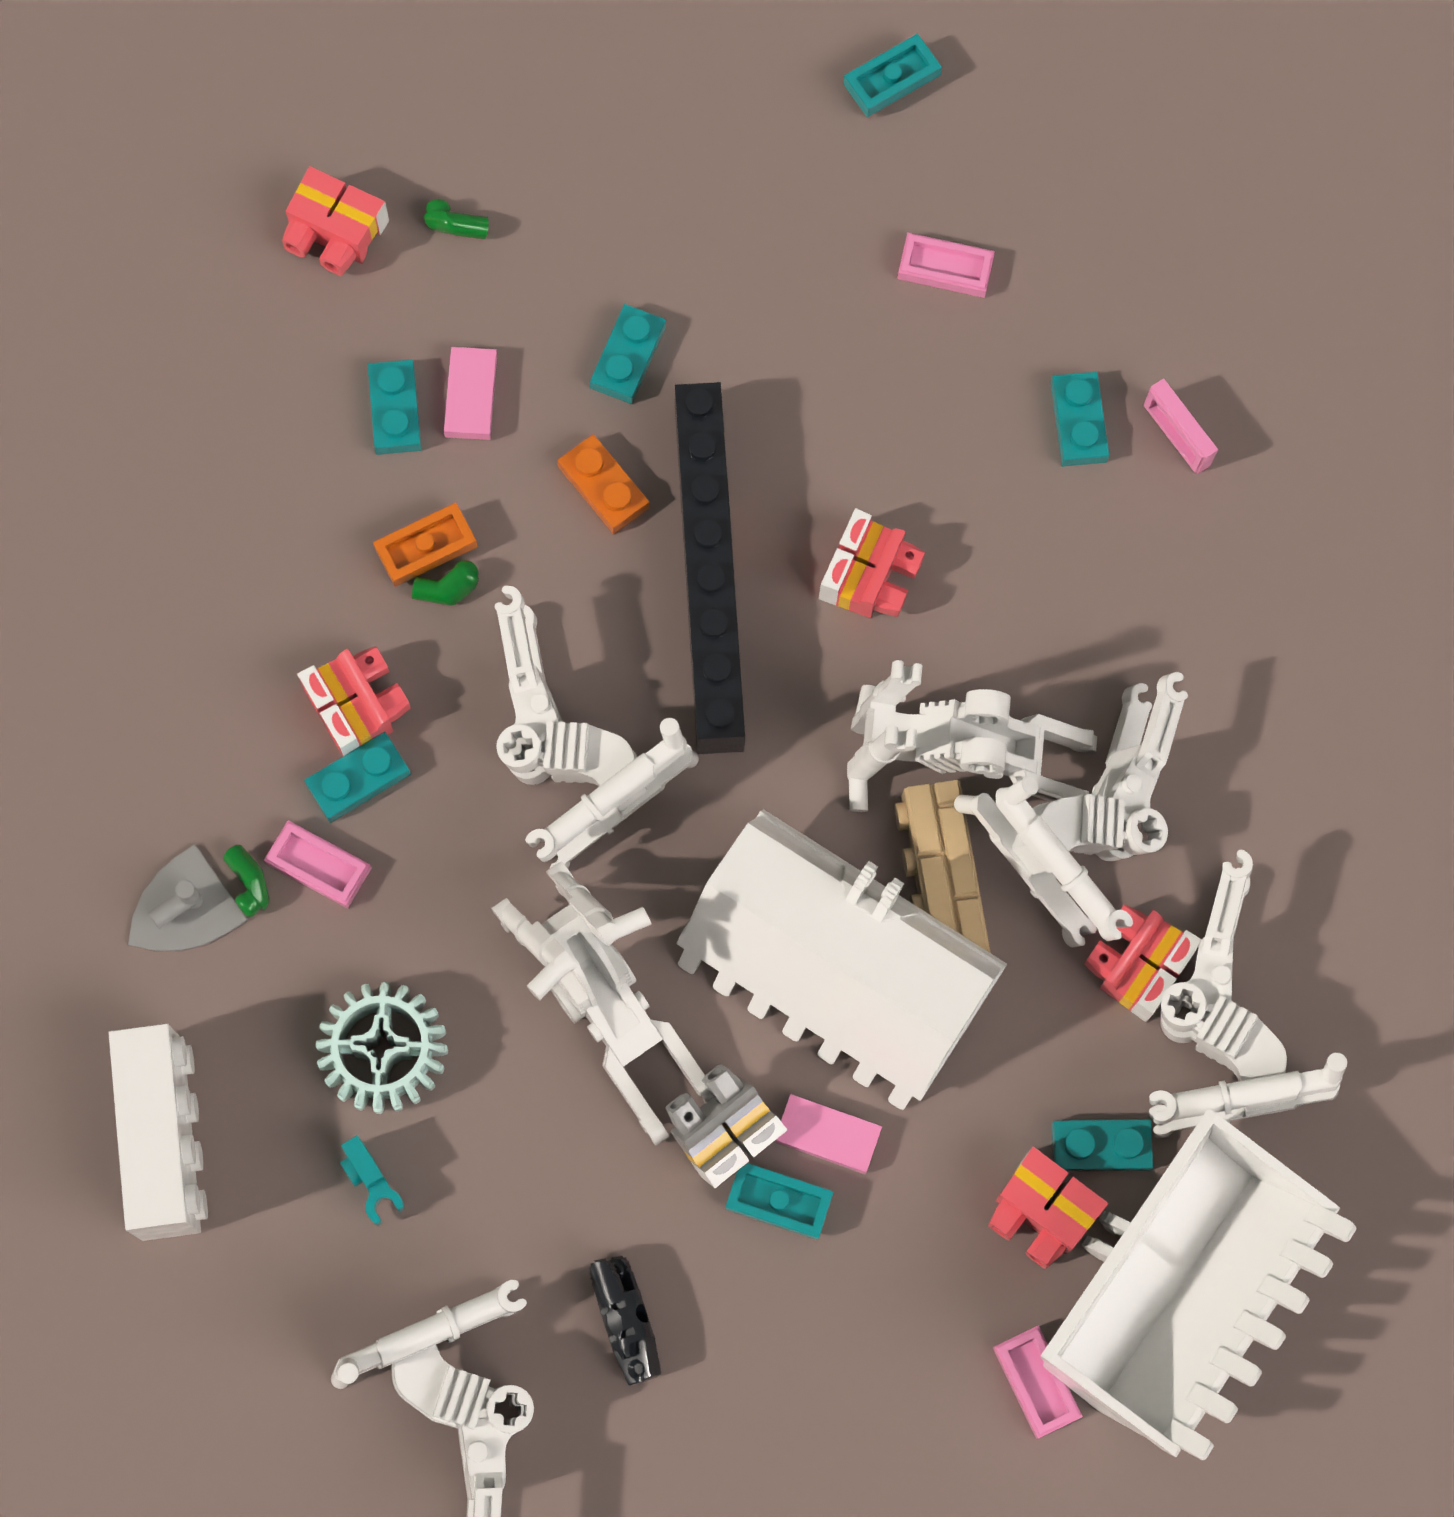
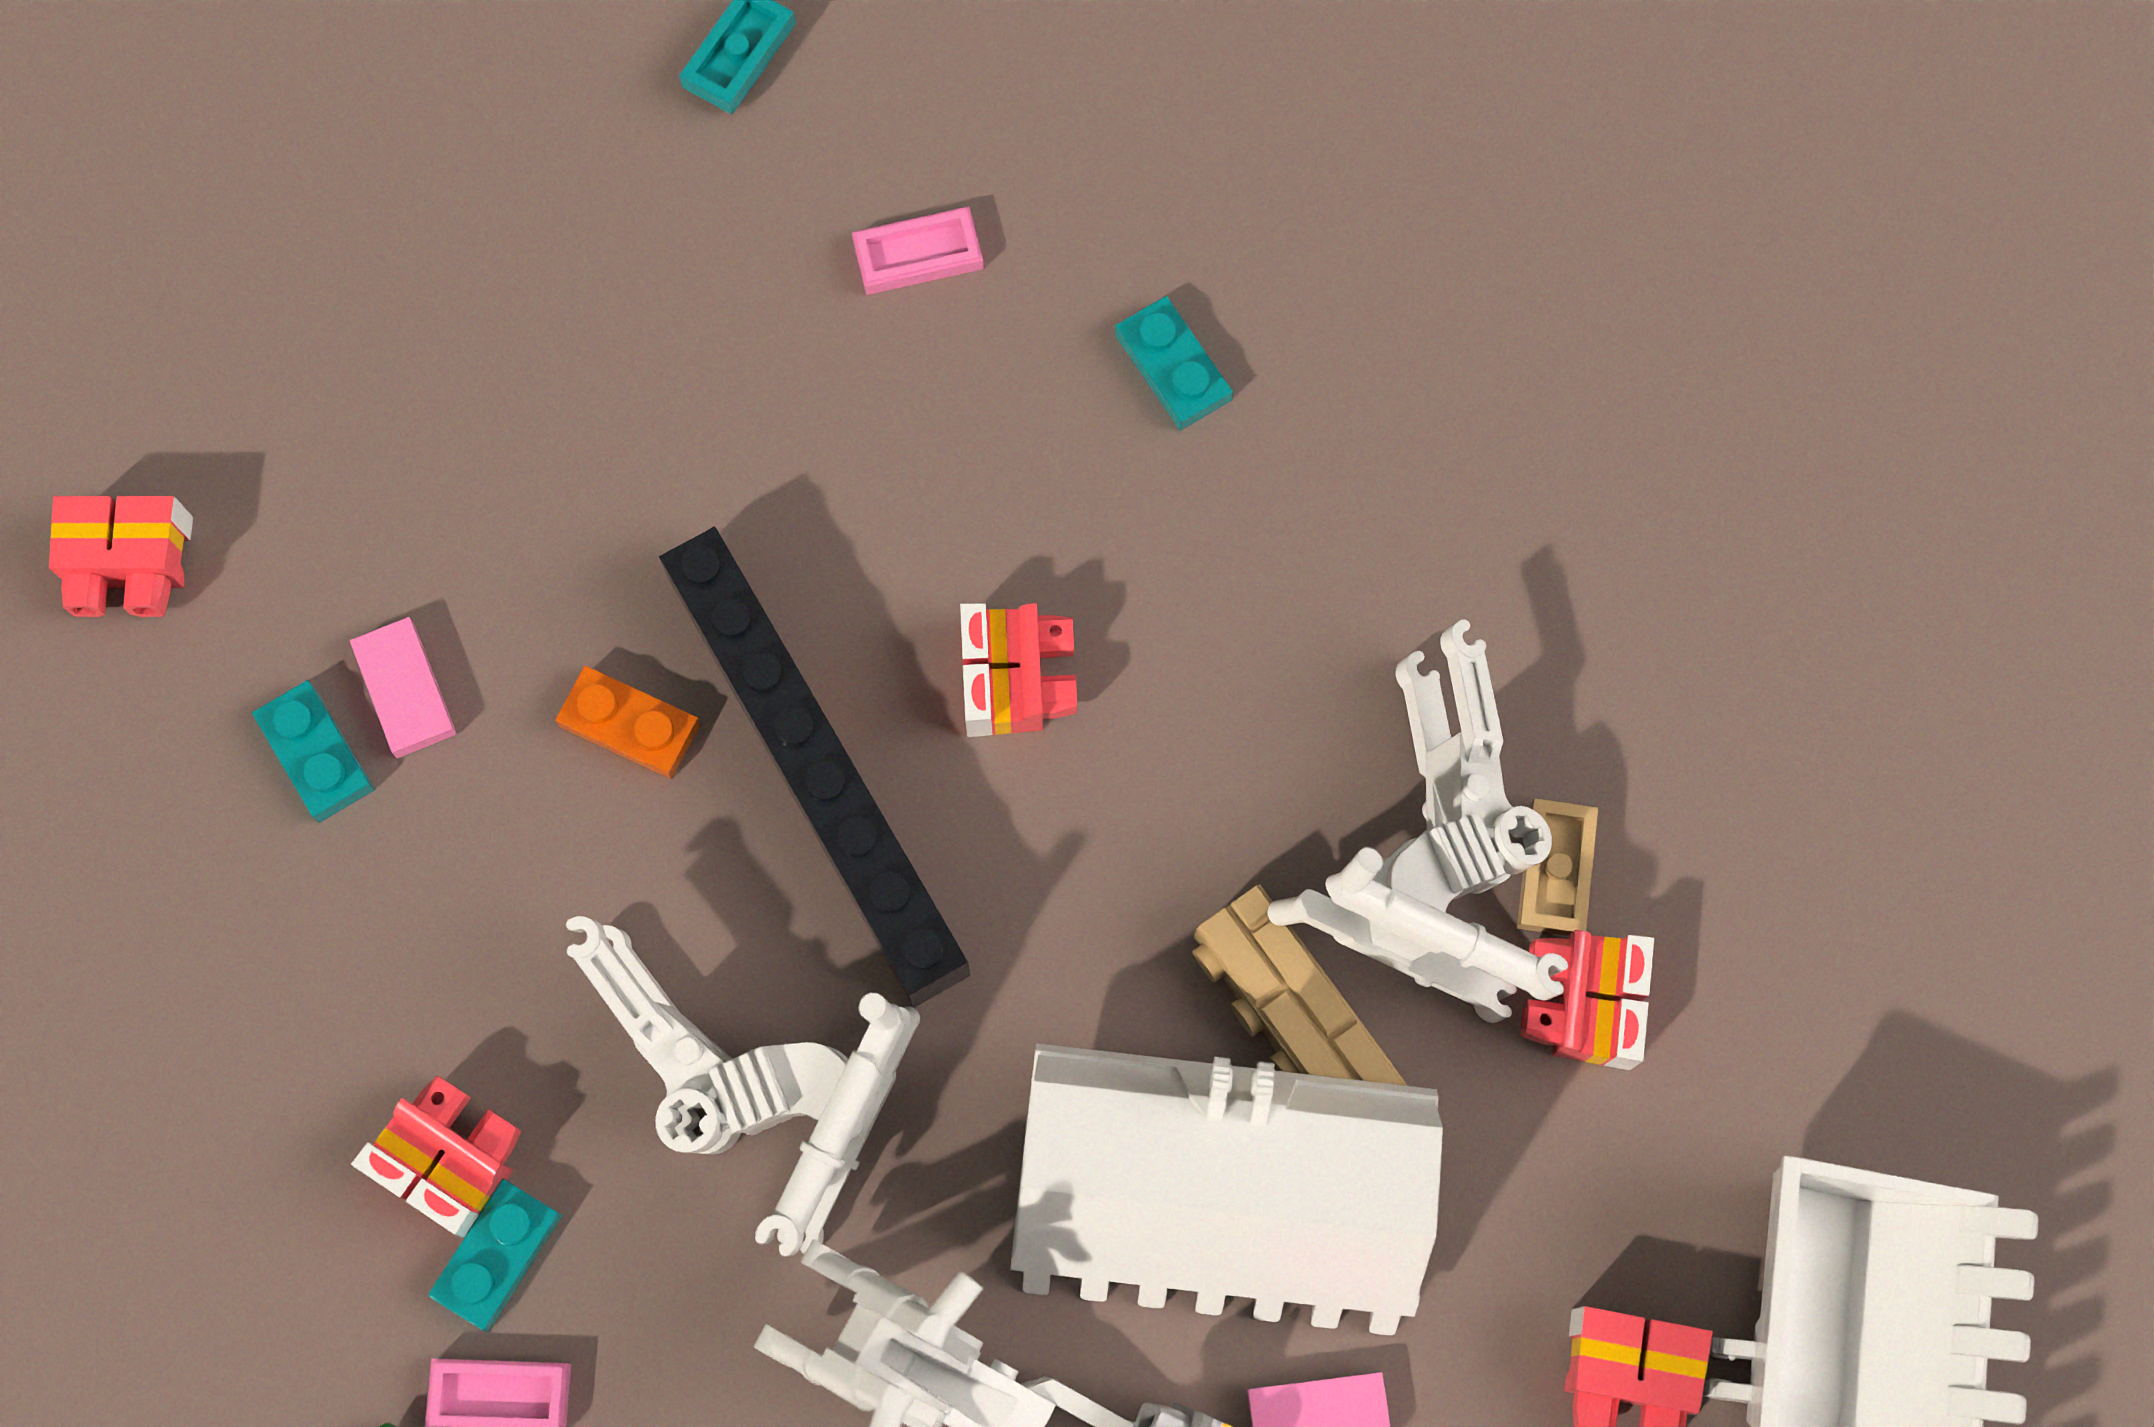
camera: 25 degrees left, 0 degrees up
(425, 544) = (438, 909): orange plate -> none
(451, 588) = (498, 950): green arm -> none
(459, 224) = (260, 485): green arm -> none
(628, 354) = (579, 543): teal plate -> none
(955, 736) = (1224, 840): white piece -> none
(1102, 1145) = (1658, 1254): teal plate -> none
(1166, 870) = (1558, 888): none -> tan plate
(1180, 426) = (1299, 315): bright pink tile -> none
(1231, 1032) = (1746, 1036): white piece -> none

